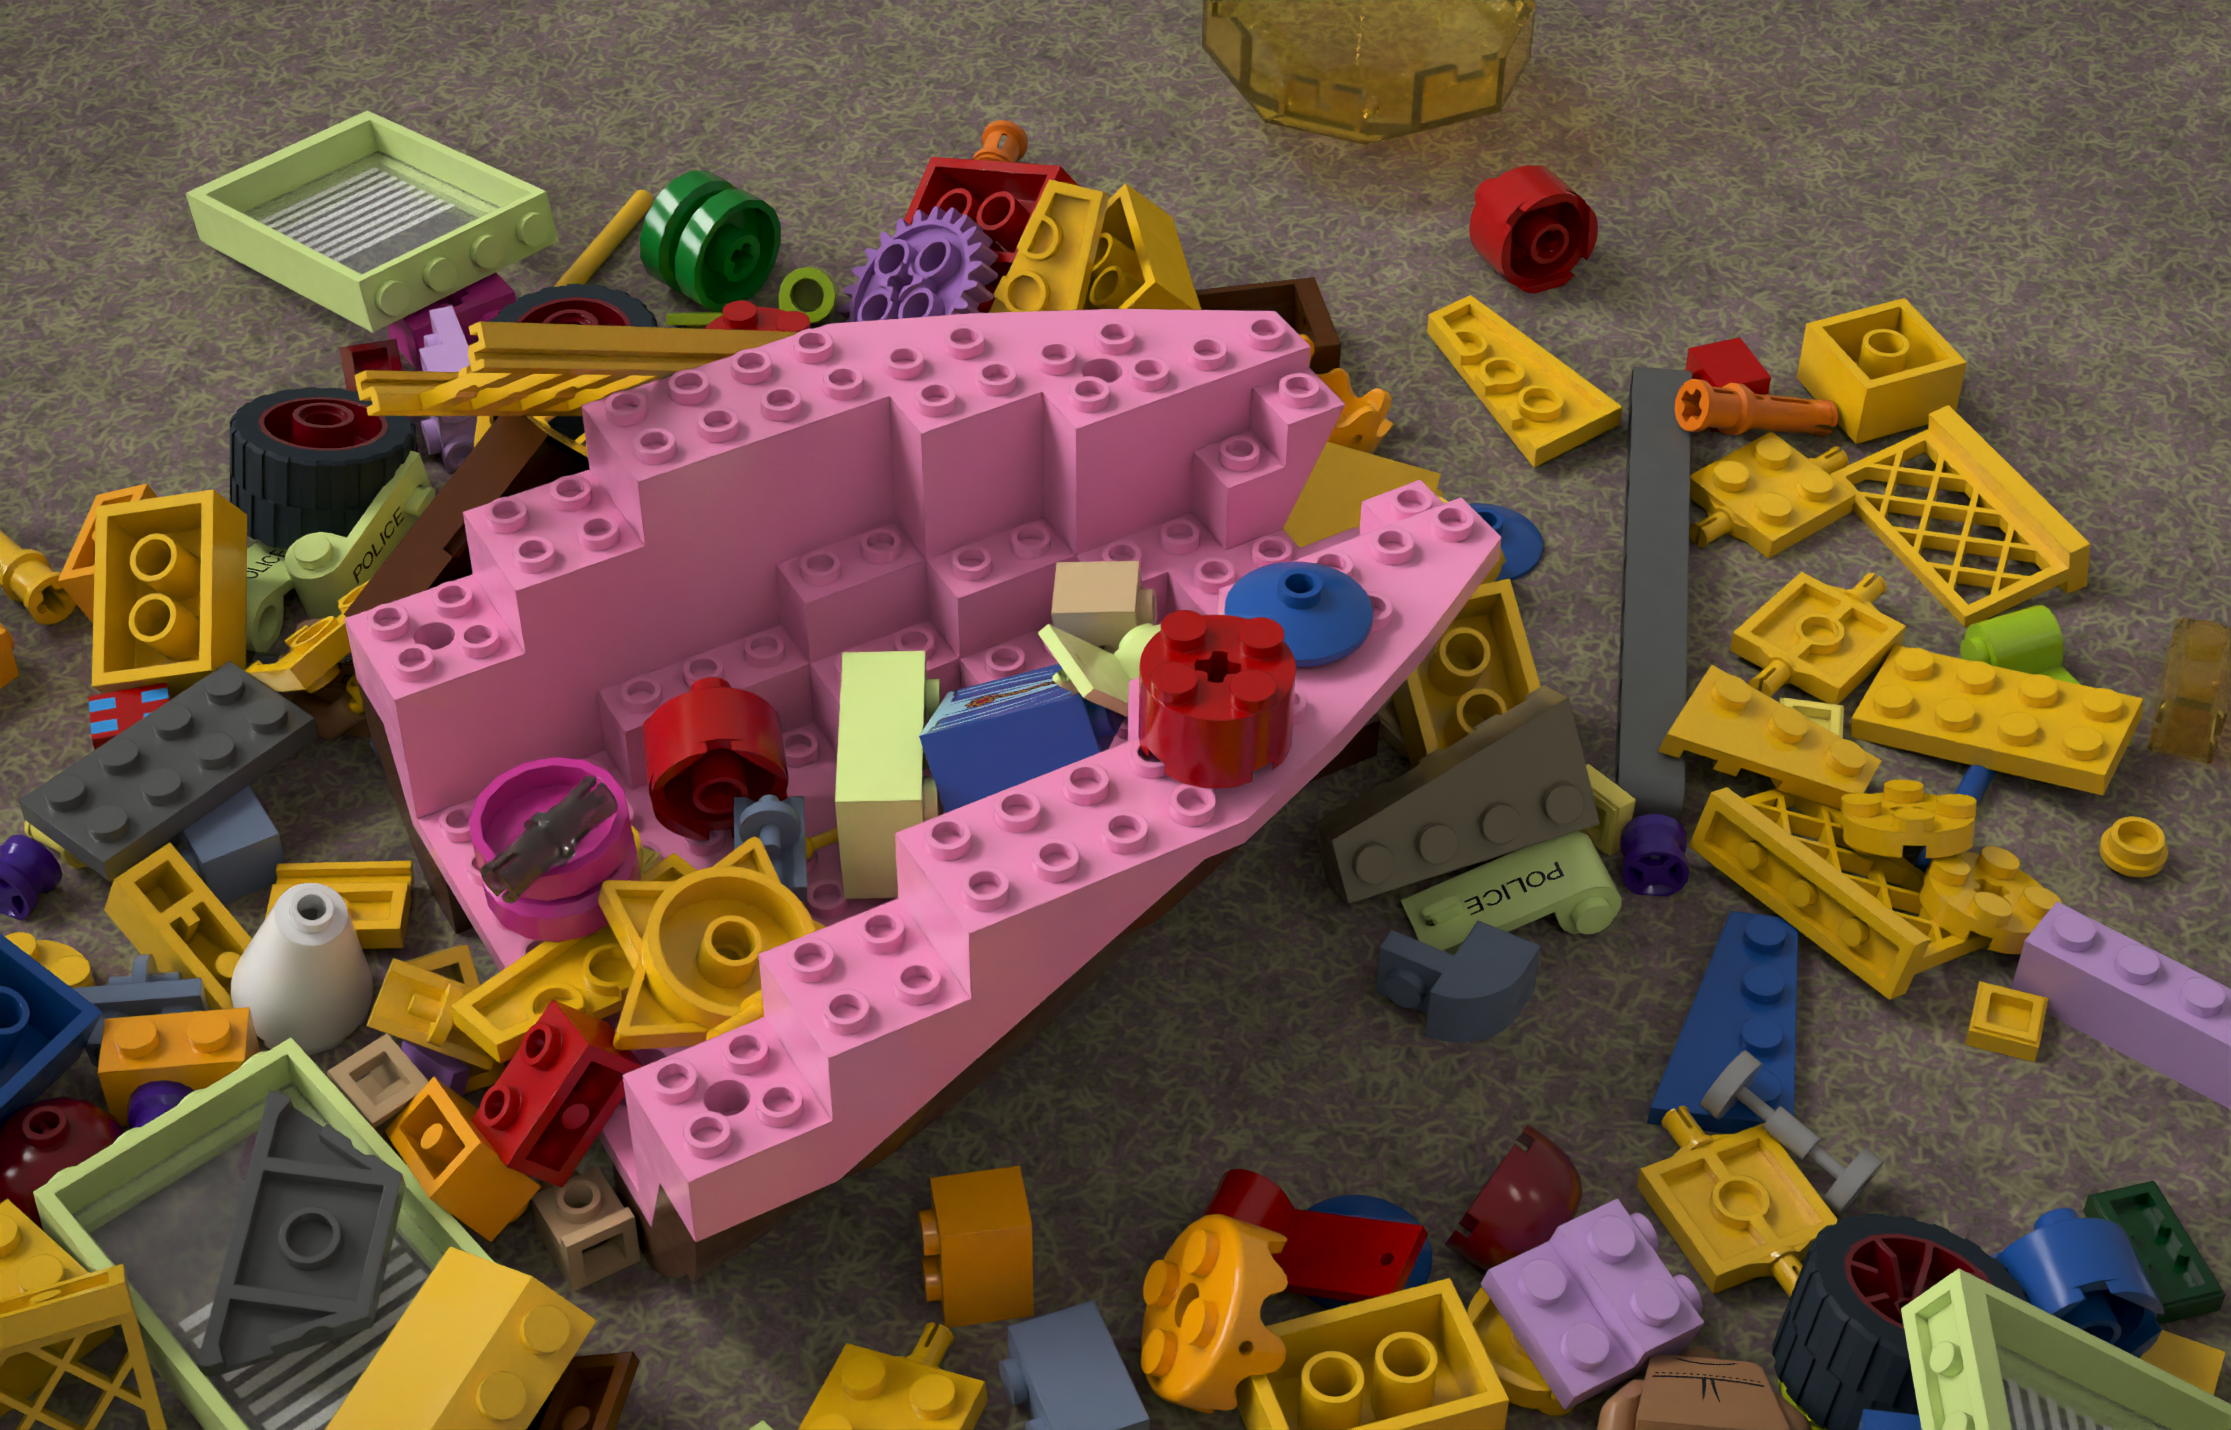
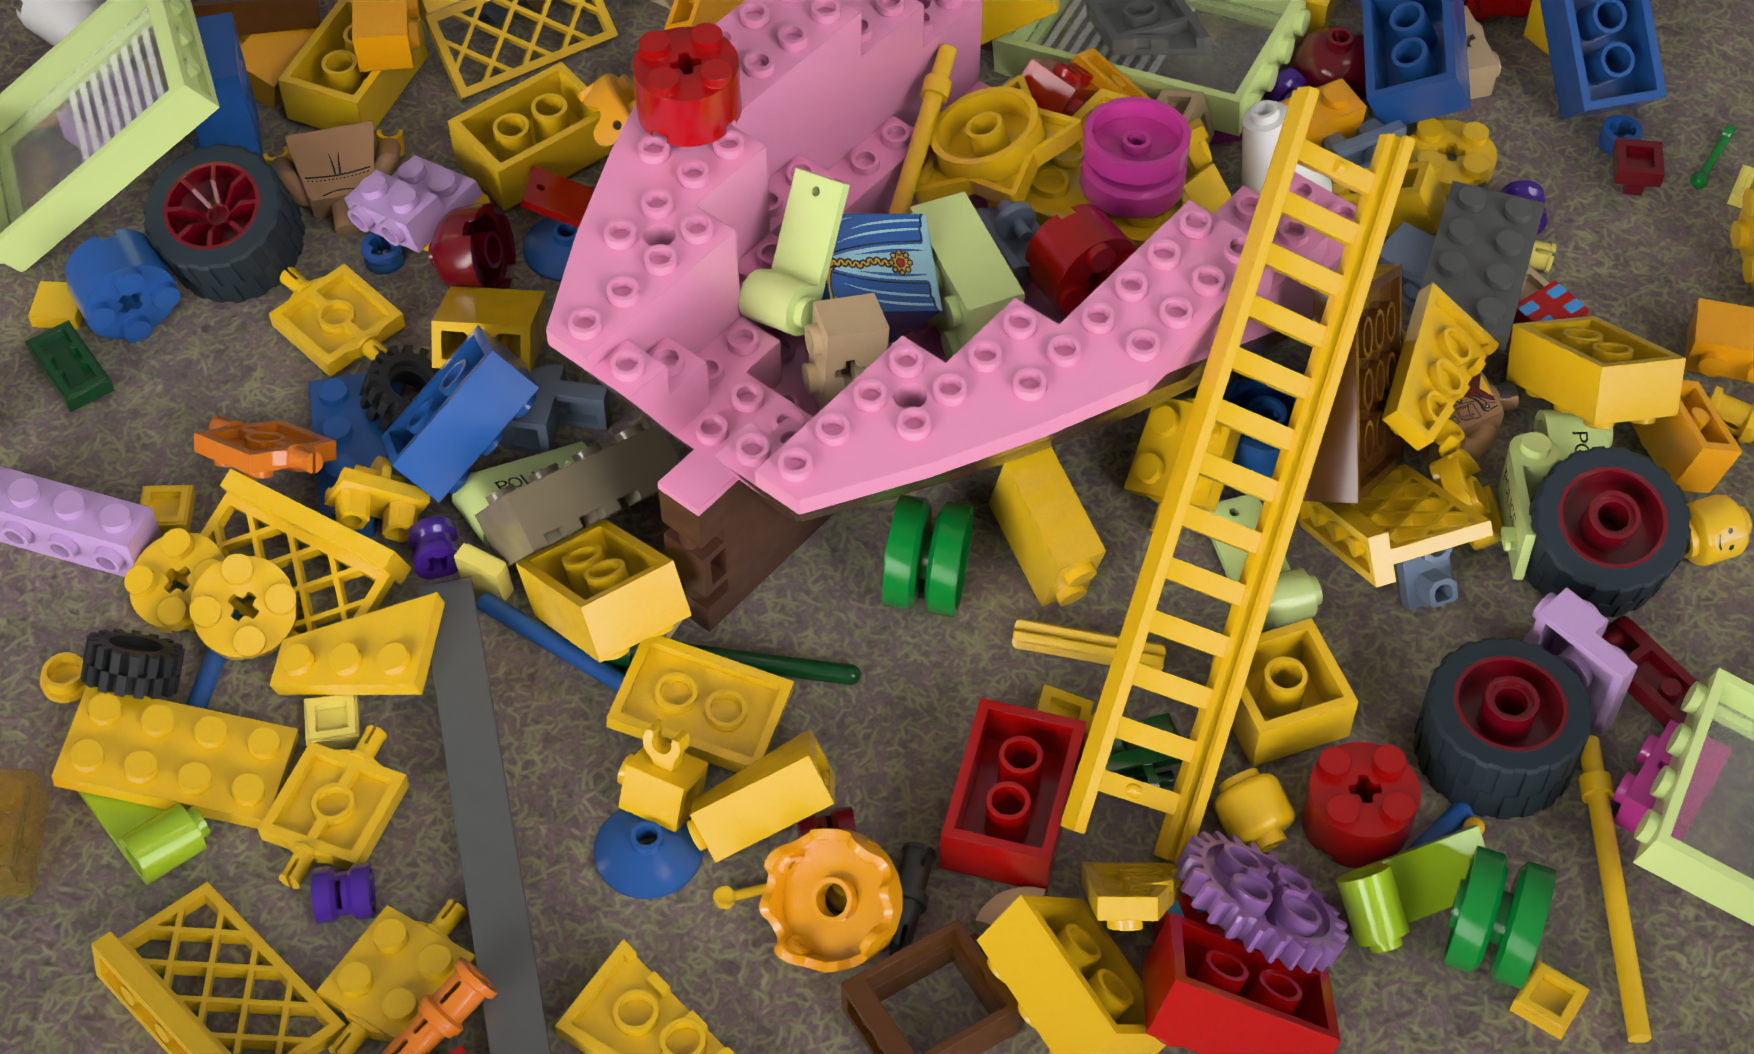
camera: 160 degrees right, 10 degrees up
(188, 469) = (1718, 530): none -> yellow head
(549, 839) = (1118, 100): clear smoke pin -> none
(1316, 605) = (667, 206): blue dish -> none
(1519, 1056) = (508, 315): none -> yellow brick
(1595, 905) = (460, 414): none -> blue brick
(1646, 1069) = (393, 368): none -> black tyre
(1723, 898) = (376, 494): none -> yellow hips
(1790, 1132) = (347, 361): light grey wheel -> none
(1818, 557) = (343, 893): none -> dark purple wheel
(1865, 995) = (263, 447): none -> orange plate
(2020, 765) = (132, 664): none -> black tyre

